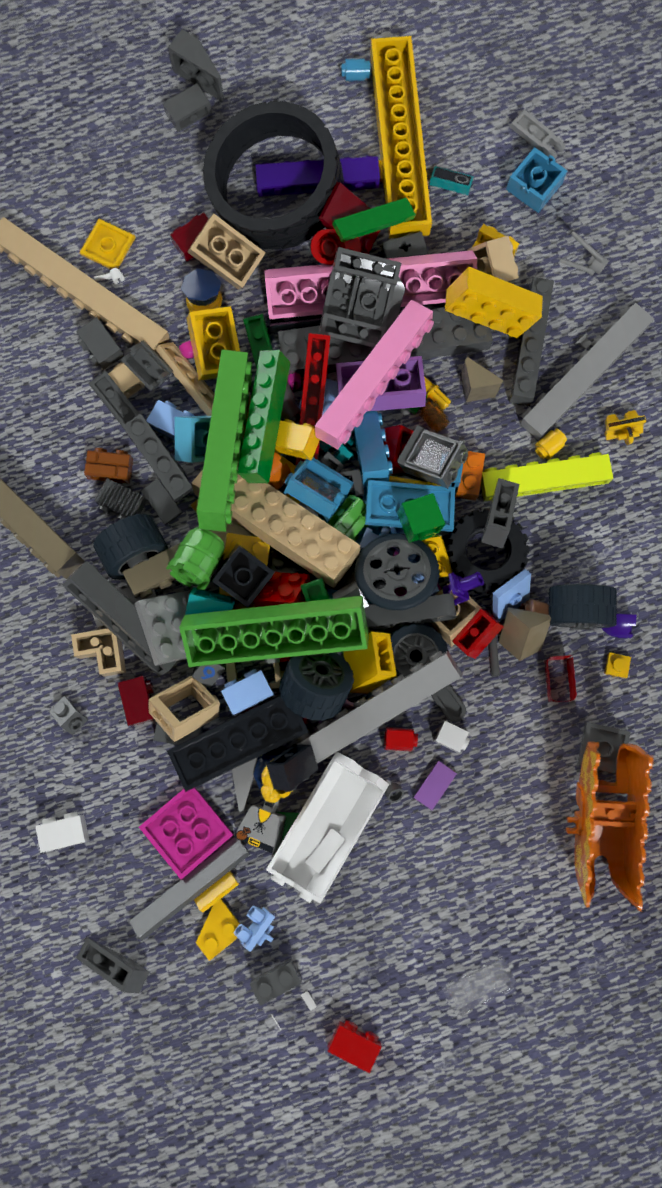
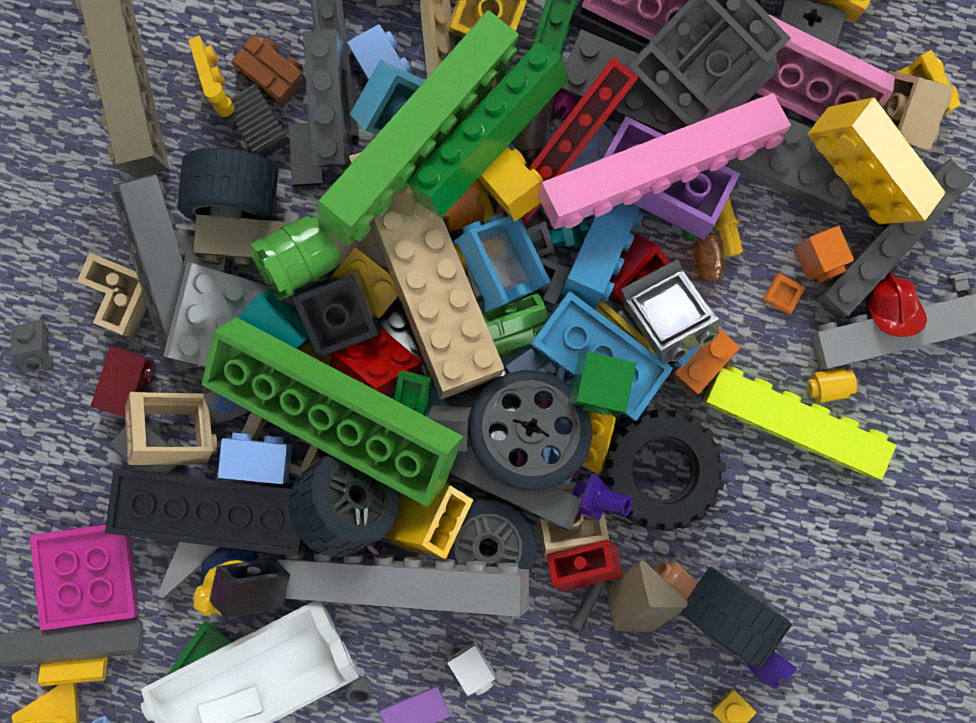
camera: 30 degrees right, 5 degrees up
(79, 489) = (211, 76): none -> yellow plate
(262, 827) = (173, 633): light grey torso -> none
(400, 739) = (405, 634): red brick -> none
(449, 704) = (497, 633): dark grey tile -> none
(479, 382) = (792, 250): dark tan slope -> none
(489, 410) = (783, 293): none -> orange tile
(500, 513) = (708, 438): dark grey slope -> none
(503, 368) = (824, 255): none -> orange brick
(511, 594) = (657, 545): light blue plate -> none
(557, 376) = (896, 307): none -> red piece
(571, 677) = (663, 695): red piece -> none
(624, 429) = (940, 426): yellow hips -> none

